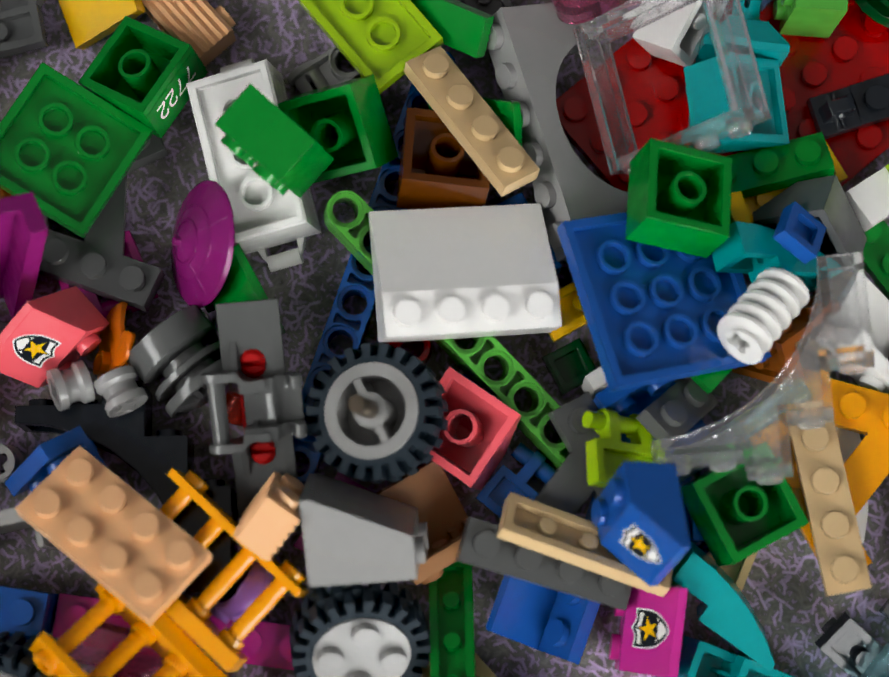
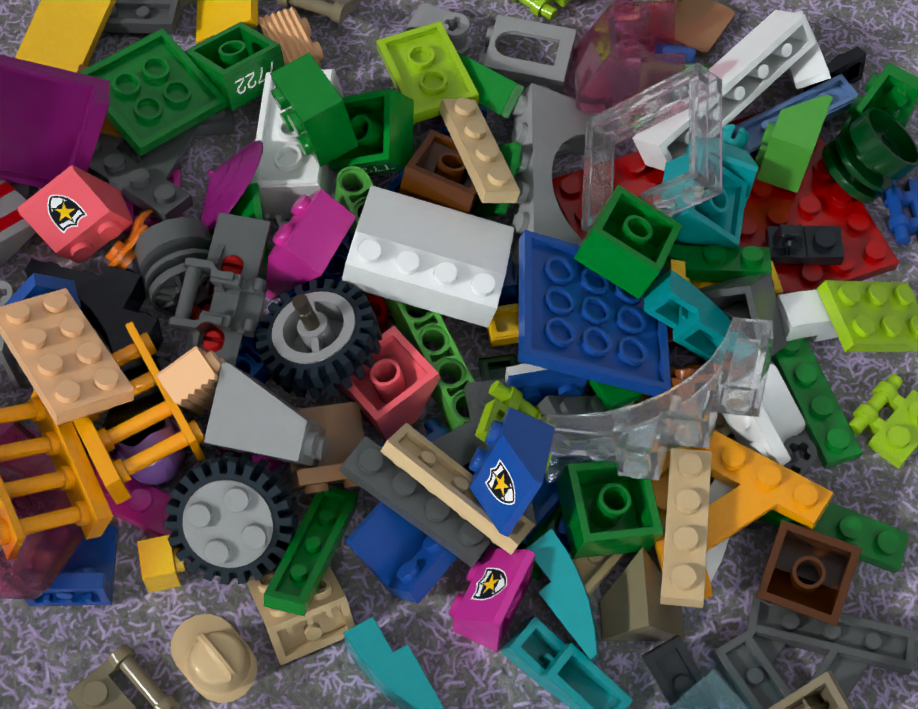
camera: 20 degrees right, 20 degrees down
(70, 385) = (80, 252): light grey wheel -> none
(120, 391) = (118, 265): light grey wheel -> none
(325, 302) = (306, 242): none -> dark pink slope
(762, 314) = (671, 347): white piece -> none
(792, 585) = (633, 605): none -> dark tan slope
(799, 232) = (724, 299): blue plate -> none

